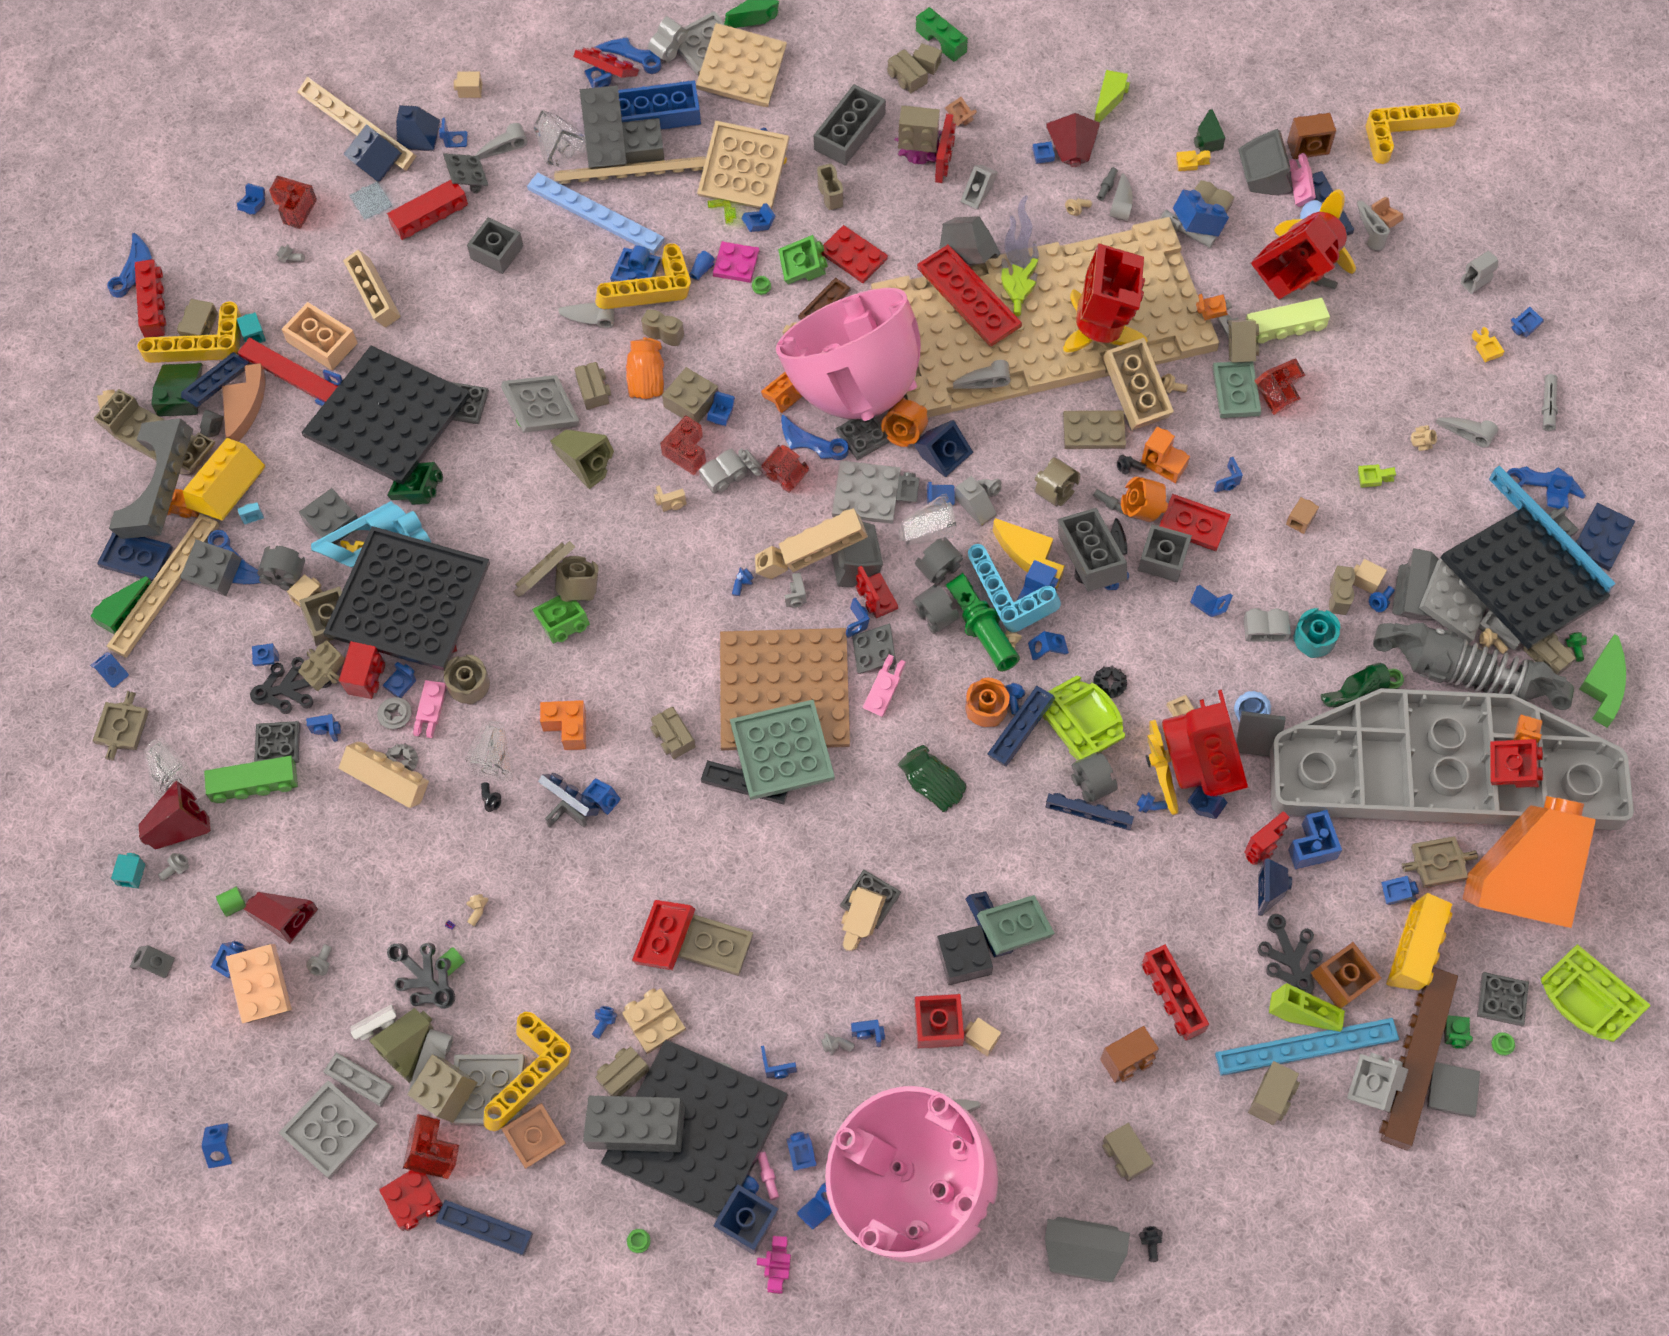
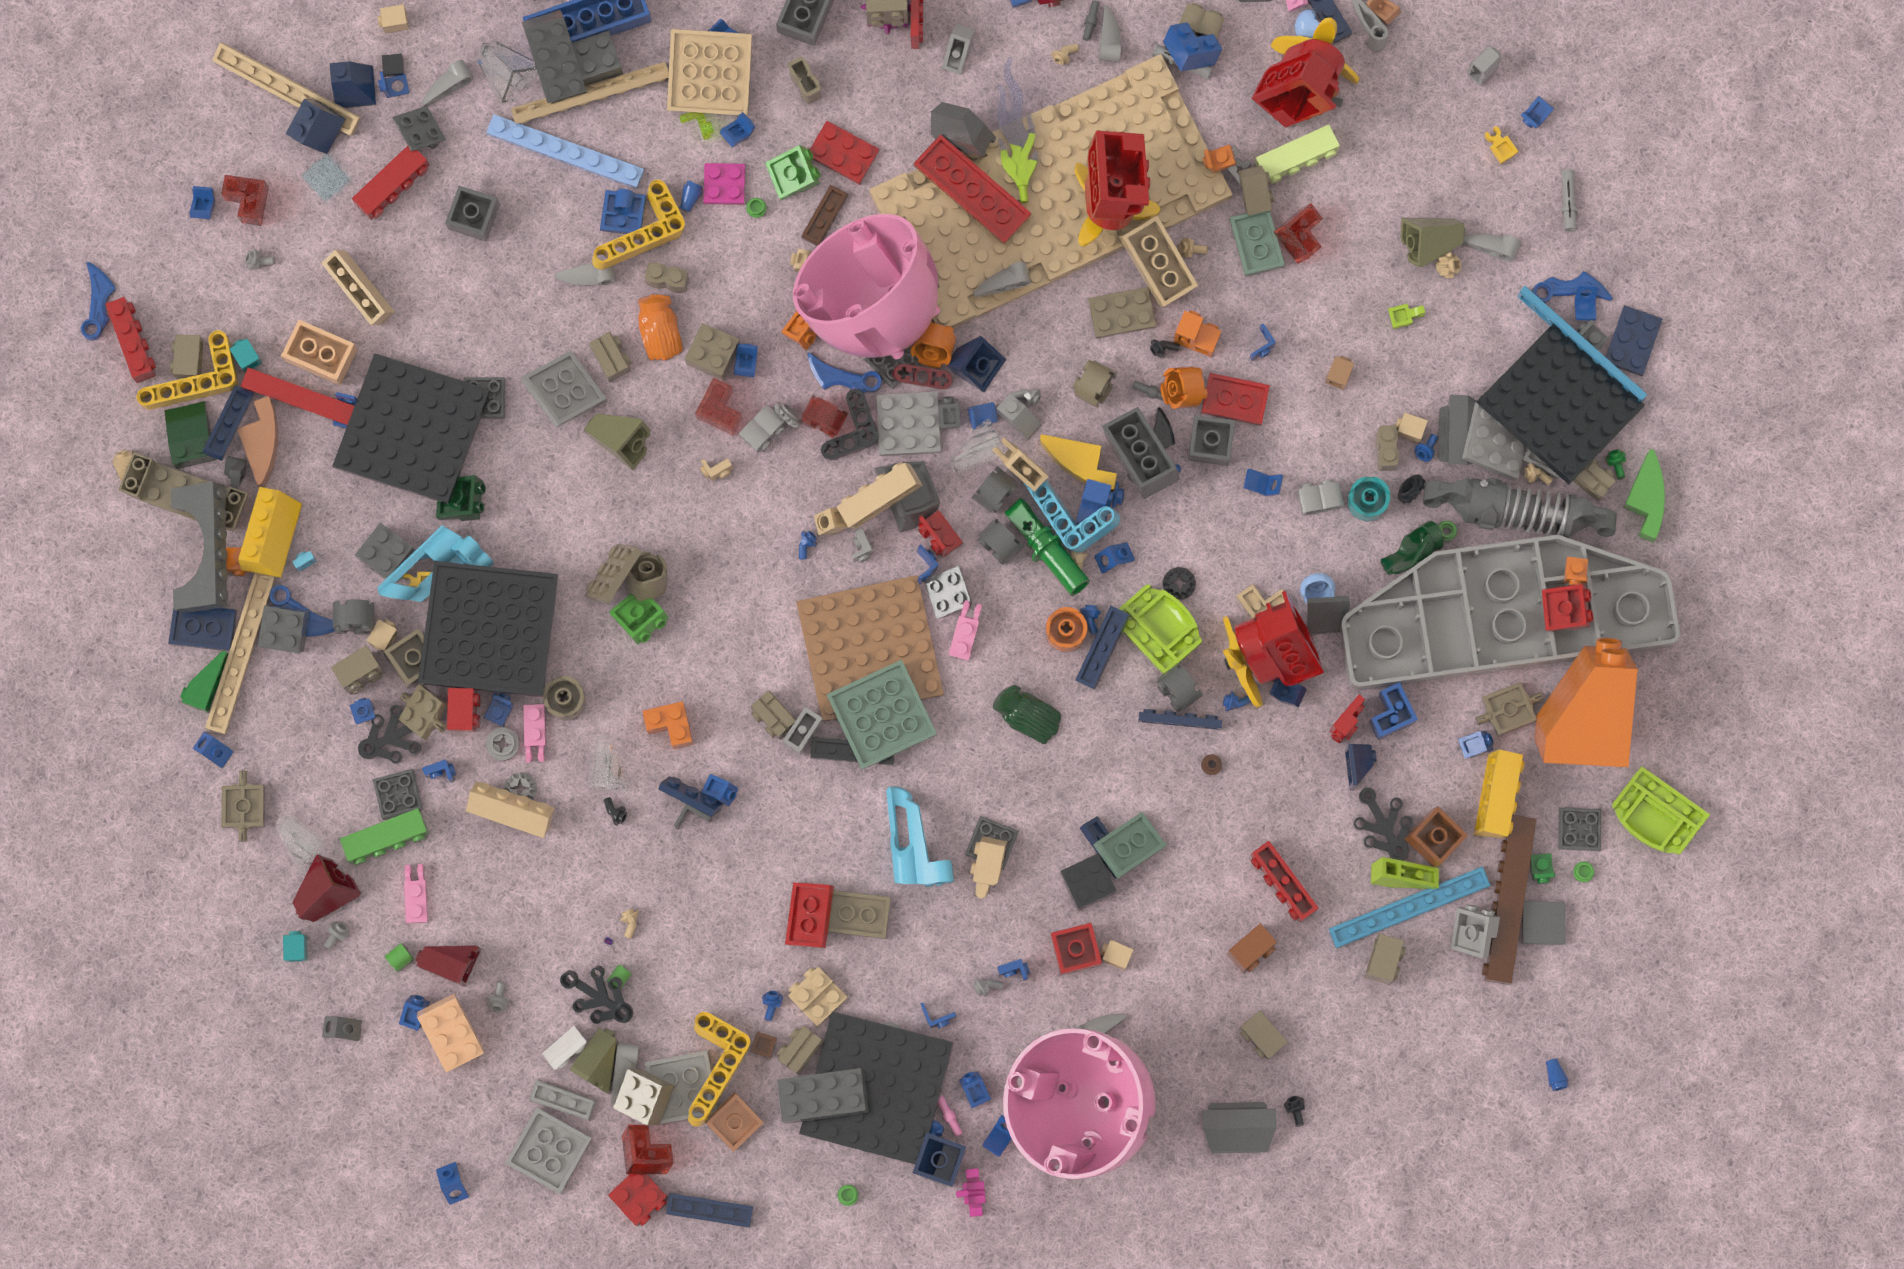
camera: 10 degrees left, 15 degrees up
(266, 843) = (415, 896): none -> bright pink hinge
(270, 616) = (358, 670): none -> dark tan brick
(457, 121) = (392, 65): none -> black tile
(585, 1060) = (763, 1045): none -> reddish brown plate
(697, 751) = (802, 731): none -> light grey brick
(782, 901) = (912, 862): none -> medium azure panel
(815, 491) = (858, 435): none -> black beam
(885, 442) = (908, 368): none -> dark red beam
(970, 534) = (1021, 465): none -> tan hinge
(1062, 587) = (1118, 496): none -> blue plate
(1115, 868) = (1211, 771): none -> reddish brown plate
(1361, 631) = (1411, 488): none -> black gear
(1408, 410) = (1430, 238): none -> olive slope
(1451, 1260) = (1556, 1075): none -> blue cone

